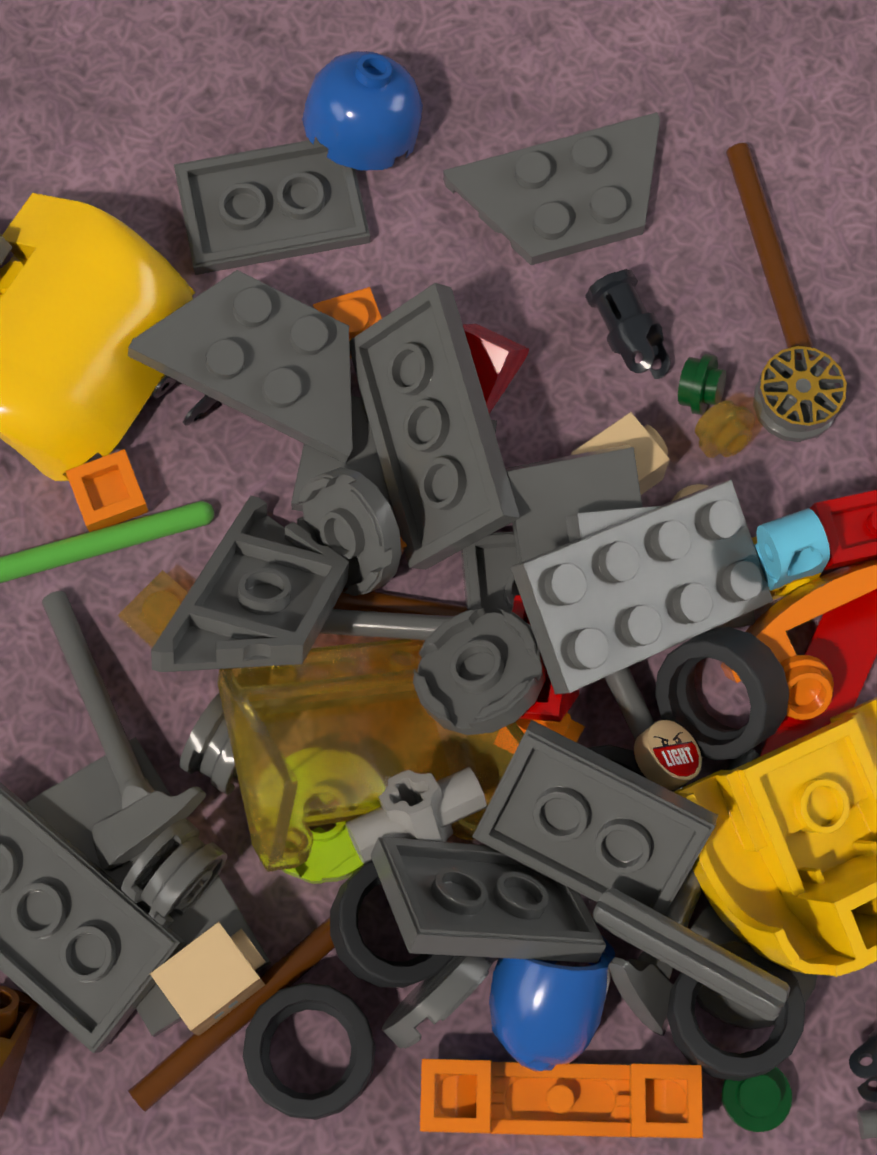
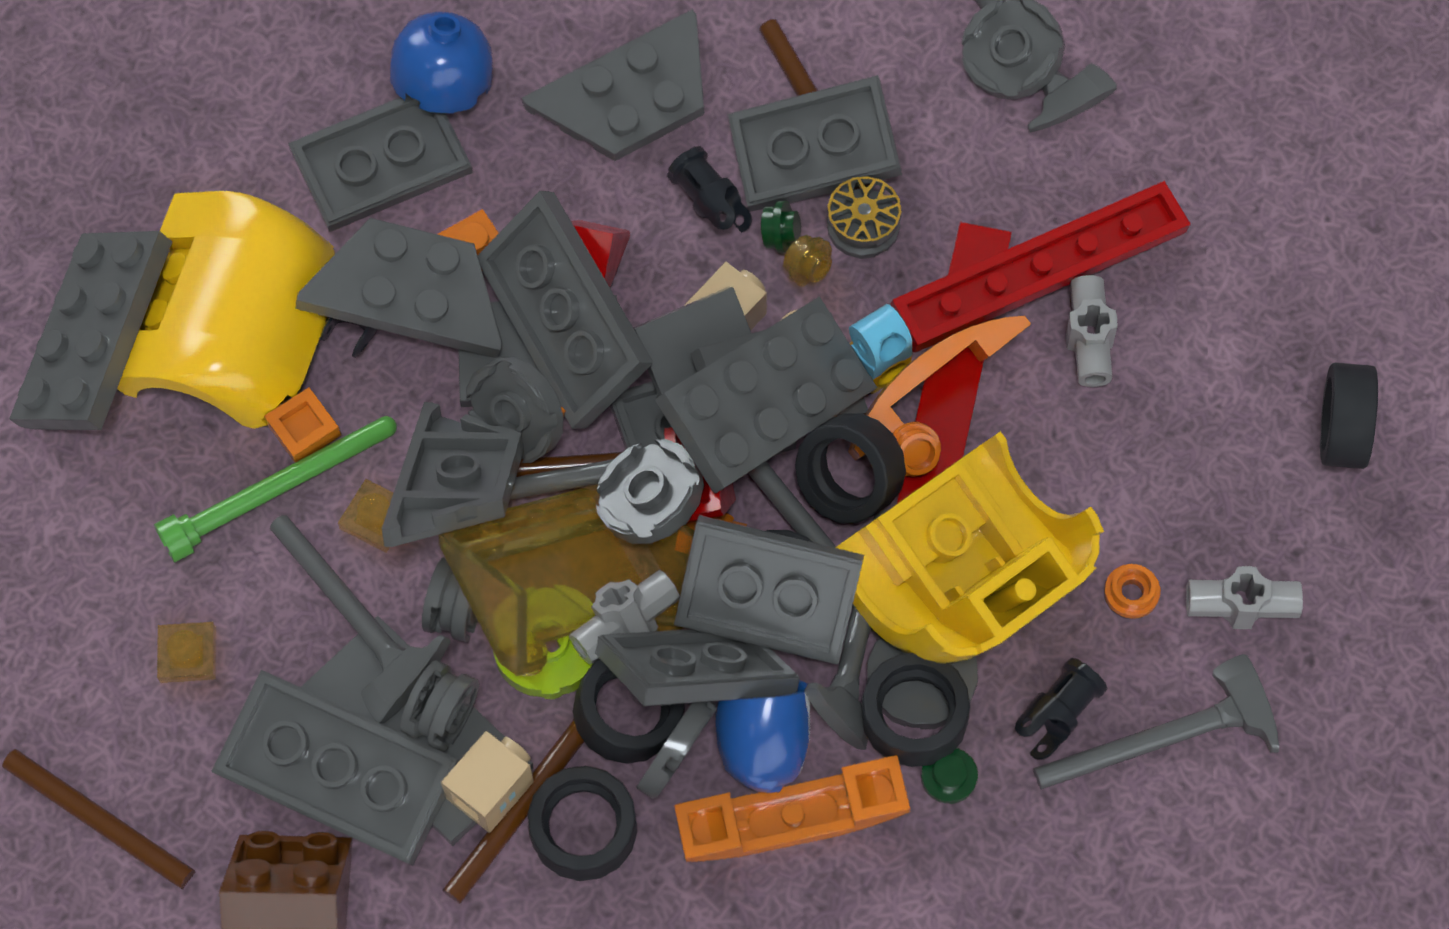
camera: 10 degrees left, 5 degrees down
(667, 754) = (817, 523): tan tile -> none
(691, 954) = (867, 667): dark grey axle -> none
(761, 295) = (814, 143): none -> dark grey tile

